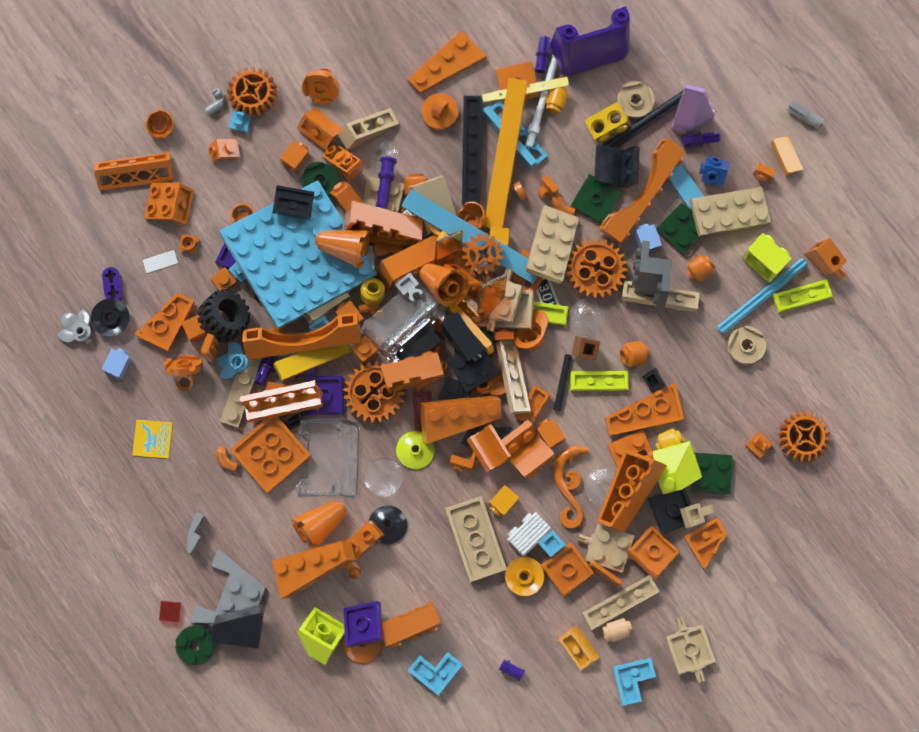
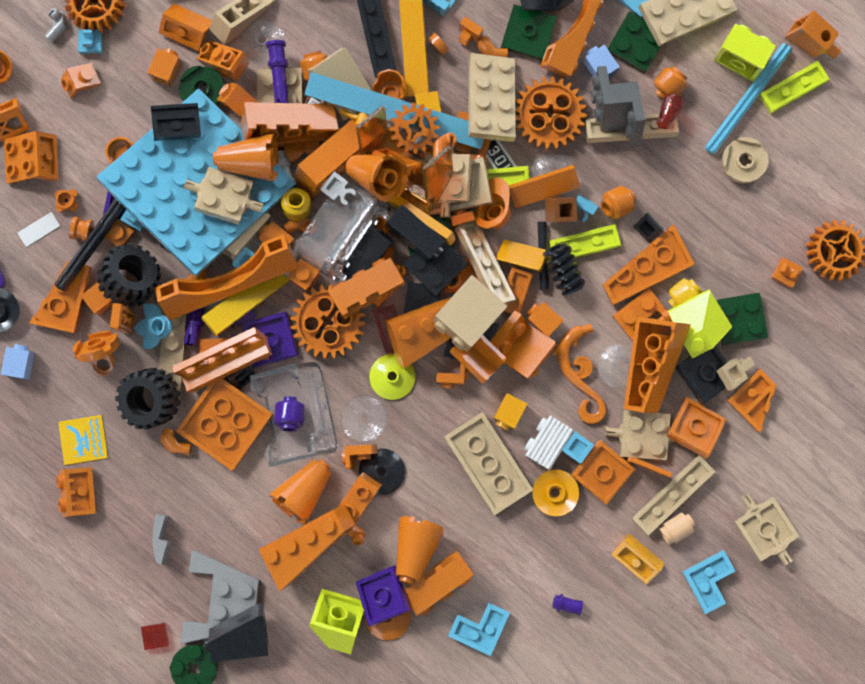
camera: 15 degrees left, 5 degrees up
(136, 479) = (76, 492): none -> orange bracket
(195, 269) = (80, 228): none -> orange wheel
(198, 284) = (89, 245): none -> black axle
(227, 421) = (132, 402): none -> black tyre
(316, 270) = (223, 195): none -> tan plate
(324, 459) = (289, 414): none -> dark purple head
(374, 503) = (361, 451): none -> orange bracket
(399, 590) = (415, 547): none -> orange cone
(489, 412) = (468, 313): none -> tan brick
(507, 269) = (446, 140): none -> orange arm
(545, 378) = (521, 256): none -> light orange slope
(577, 326) = (544, 186): none -> orange tile
(577, 396) = (565, 267): none -> black piece
(608, 350) = (586, 206): none -> medium azure tile
(694, 289) = (670, 109): none -> clear red cone

